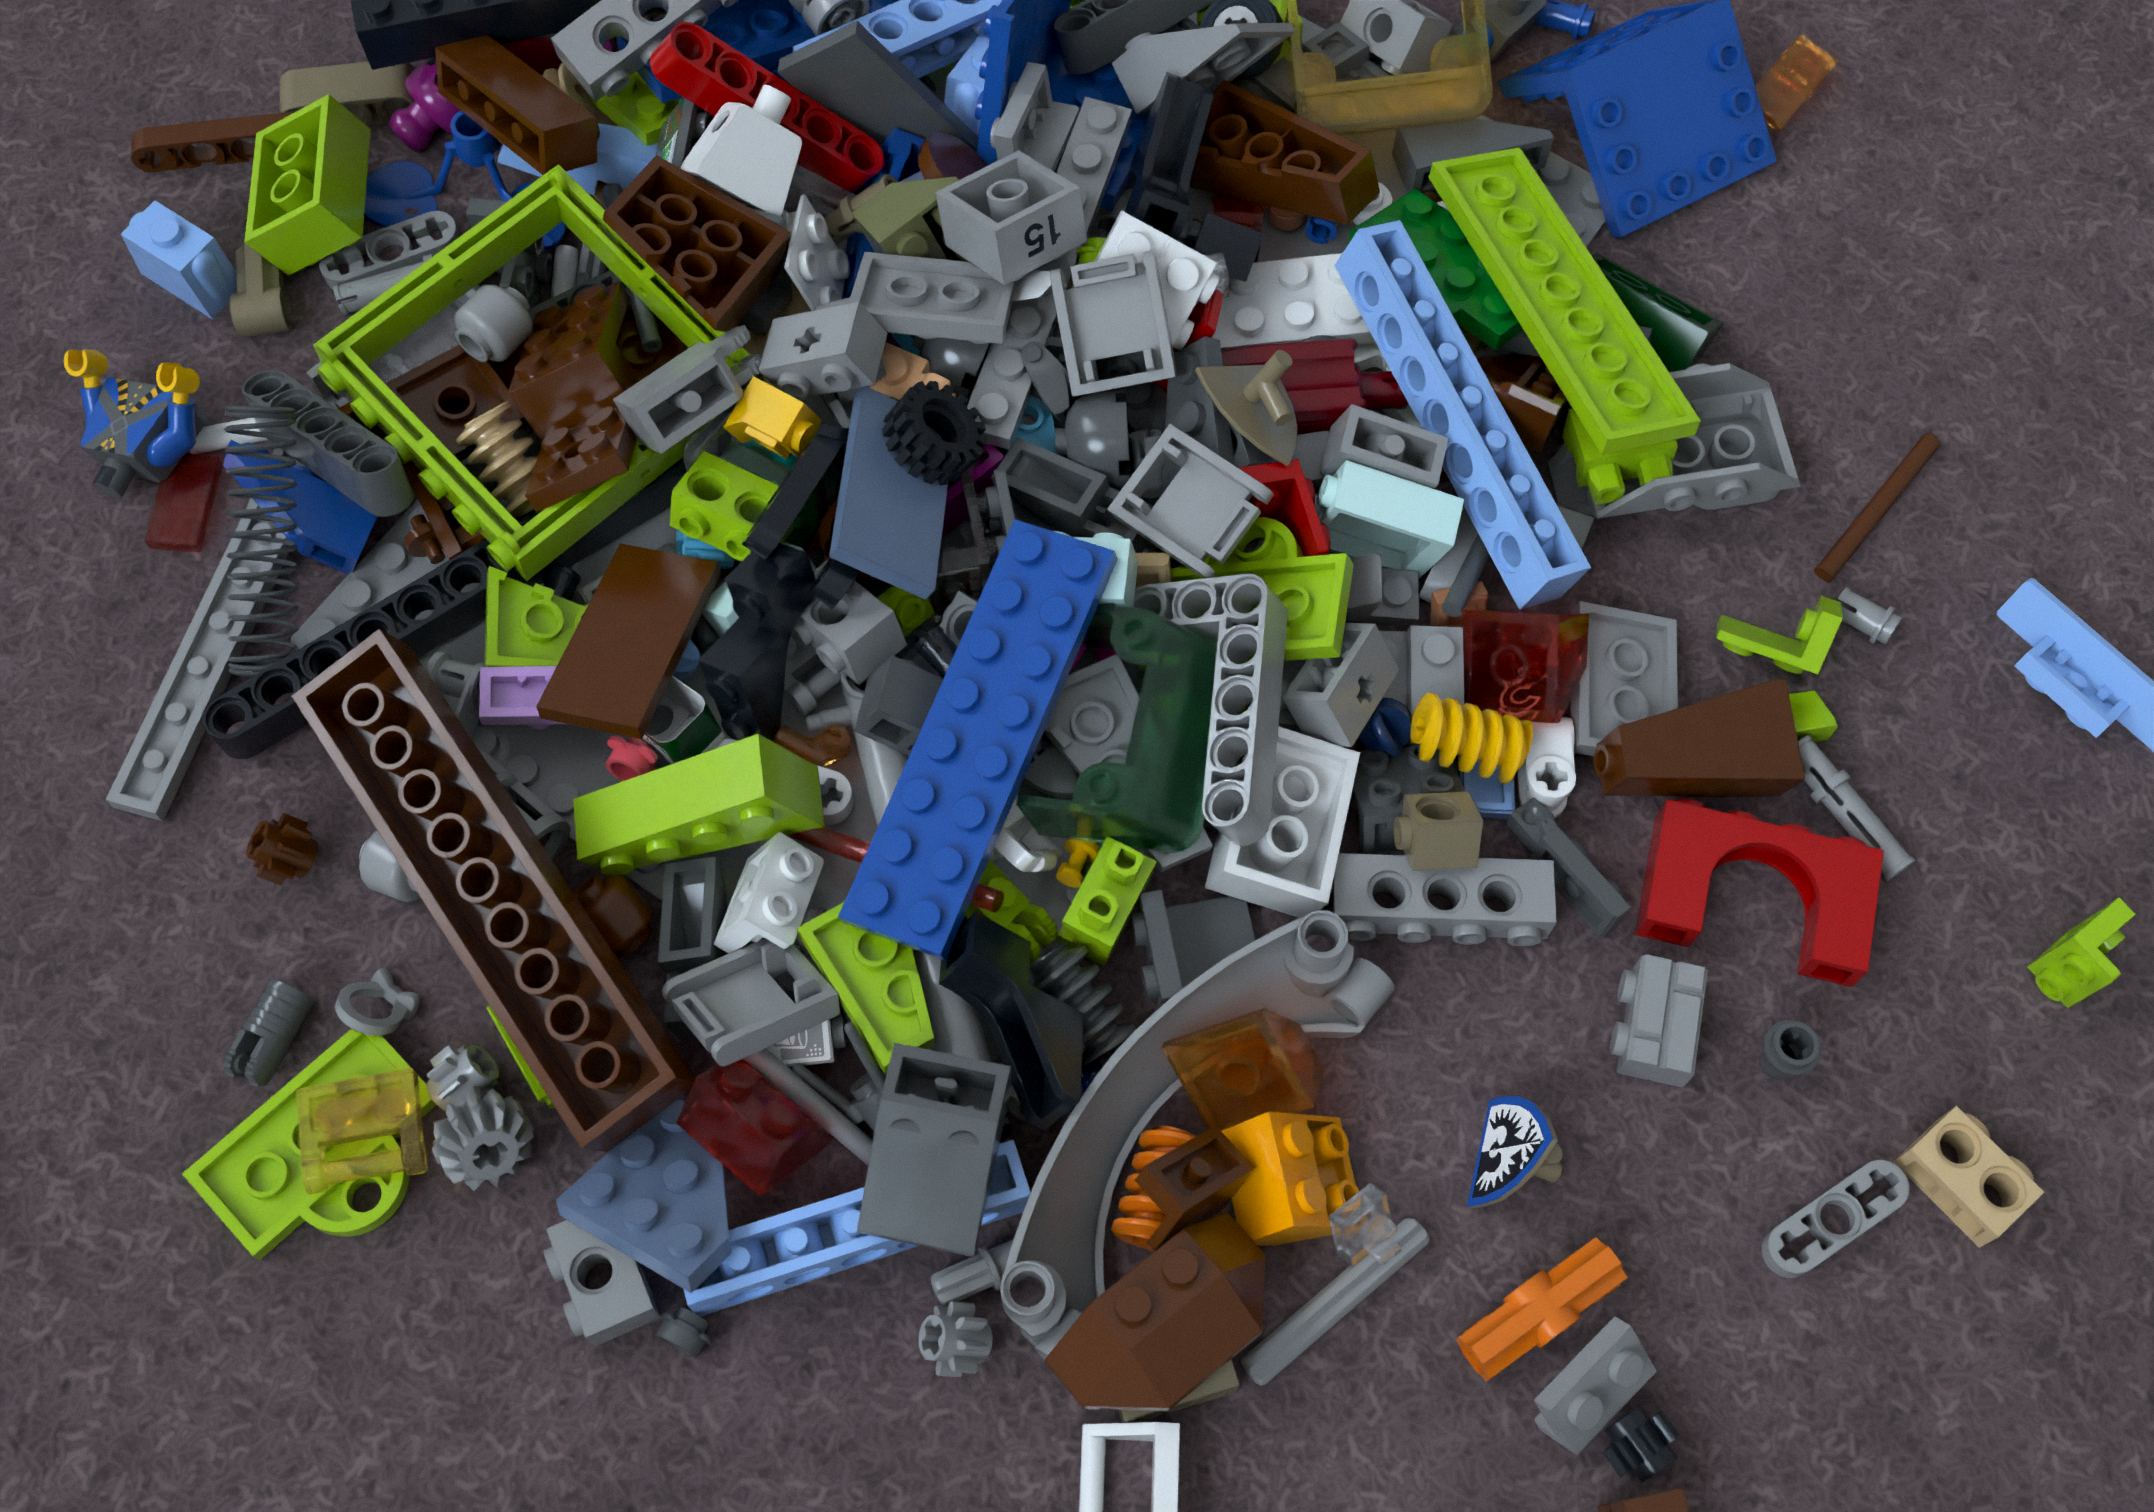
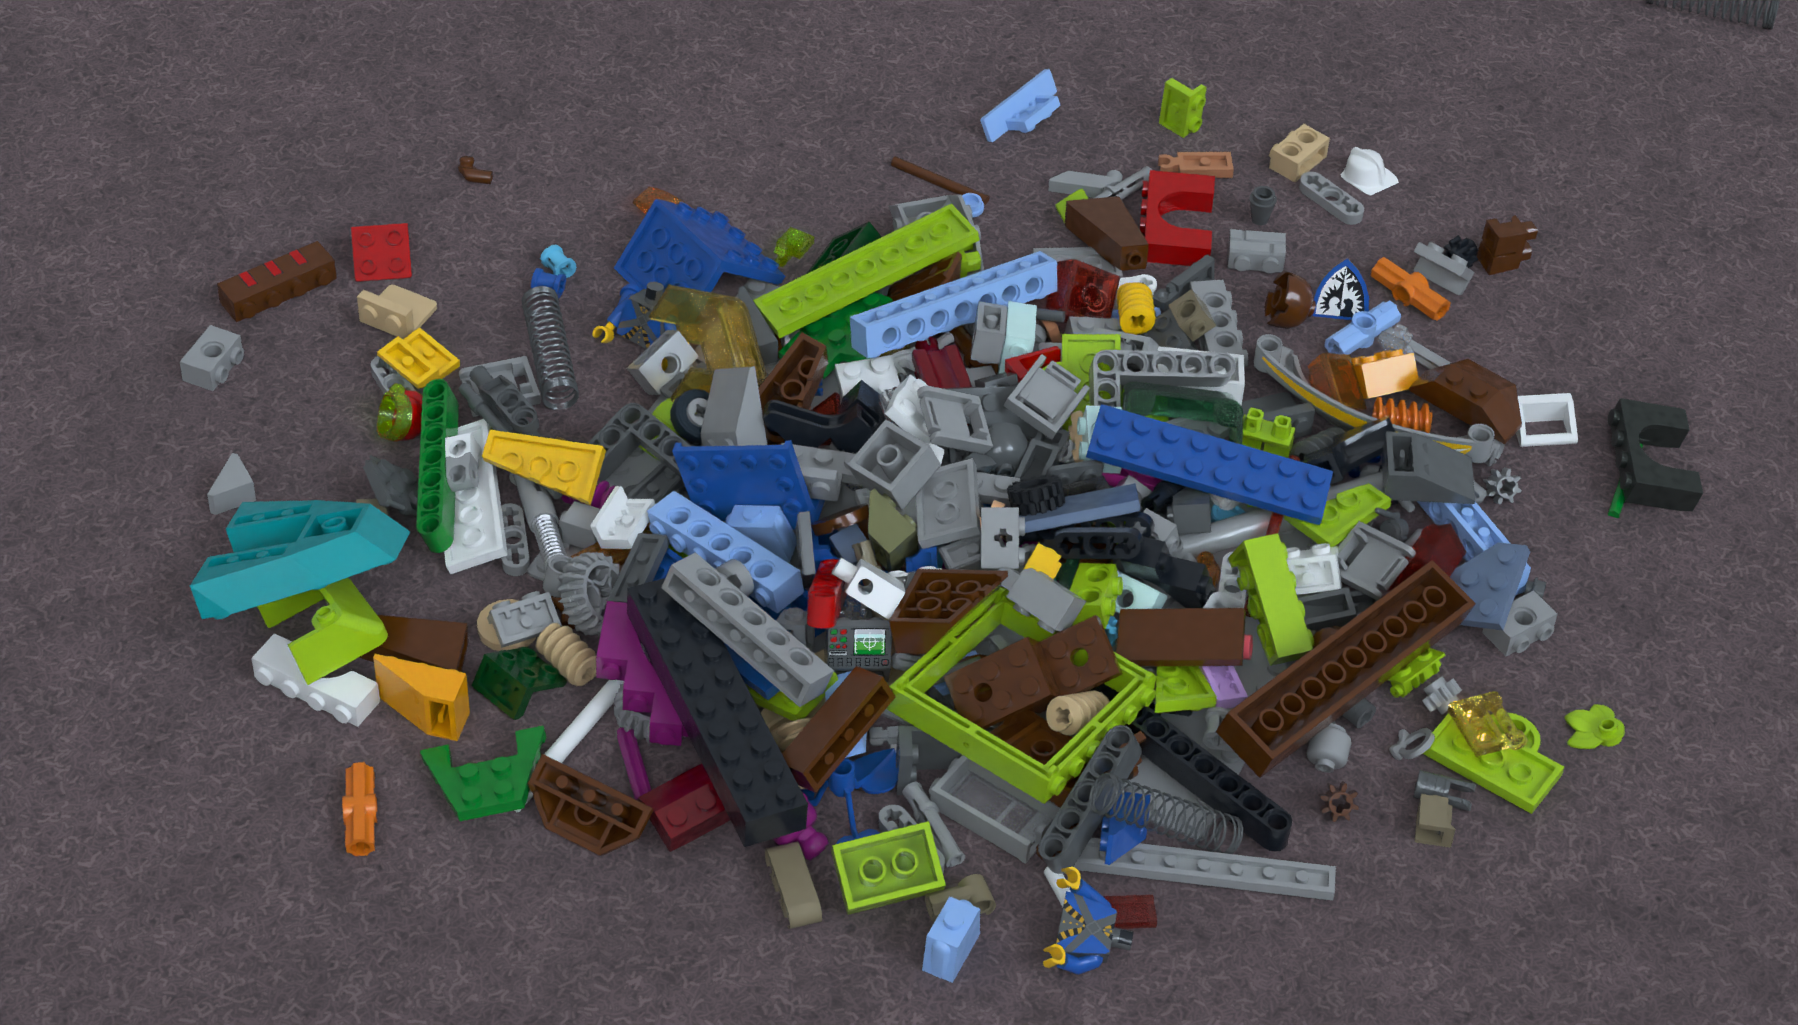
camera: 100 degrees left, 20 degrees down
(171, 148) = (845, 946): reddish brown beam -> none
(203, 996) = (1434, 821): none -> dark tan window
(350, 1344) = (1594, 727): none -> lime plate
(482, 1139) = (1472, 673): light grey gear -> none
(493, 323) = (997, 718): light grey head -> none
(1193, 1182) = (1410, 386): reddish brown panel -> none
(1256, 403) = (977, 369): dark tan shield -> none
(1440, 1208) = (1363, 329): none -> light blue piece
(1499, 1047) = (1292, 297): none -> reddish brown cylinder
(1700, 259) = (792, 244): none -> clear neon green plate
(1803, 542) = (975, 203): none -> light blue plate
(1814, 630) = (1037, 201): lime bracket -> none
(1868, 748) = (1092, 184): none -> light grey piece
(1870, 617) = (1012, 179): light grey pin -> none
(1919, 1321) = (1367, 171): none -> white piece
(1929, 970) = (1201, 163): none -> nougat plate

